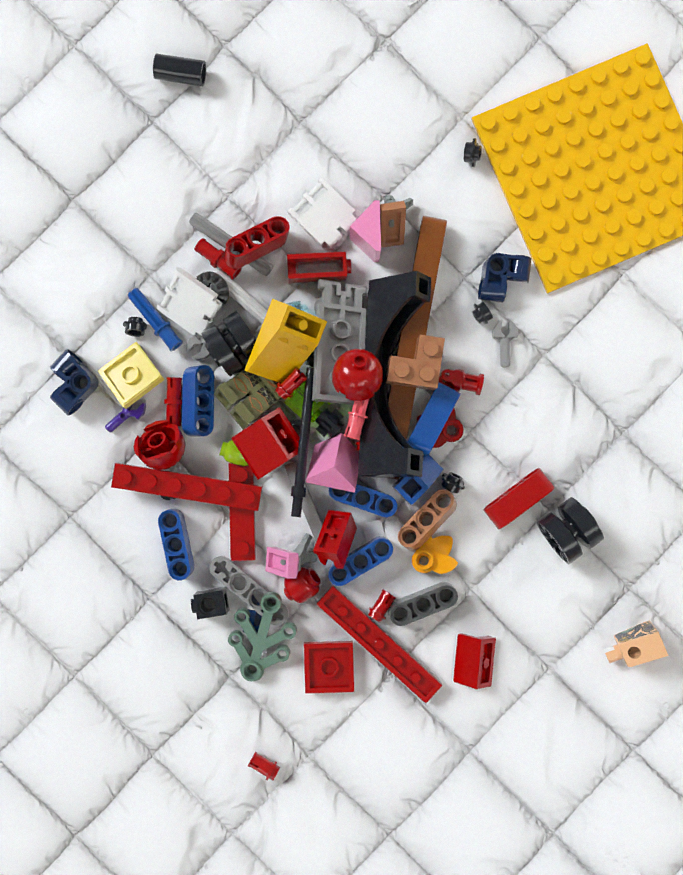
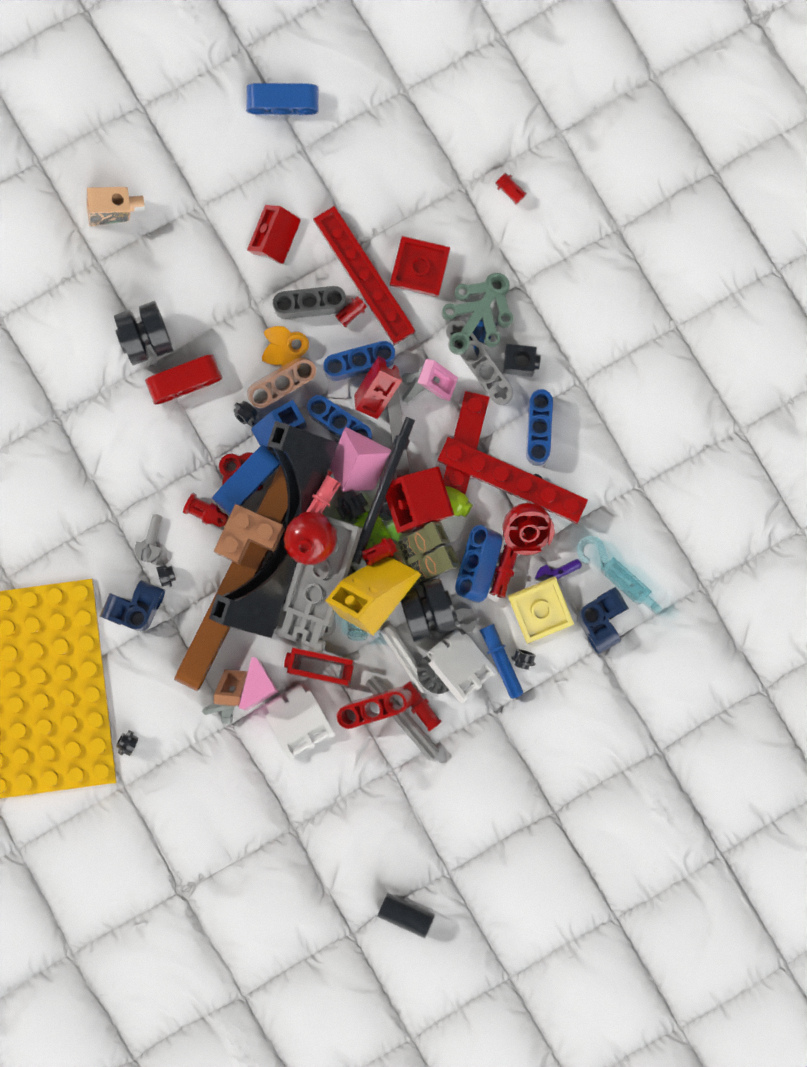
camera: 165 degrees left, 5 degrees down
(67, 427) = (619, 575): none -> clear light blue piece
(302, 587) = (423, 349): red head -> none
(504, 794) = (282, 99): none -> blue beam

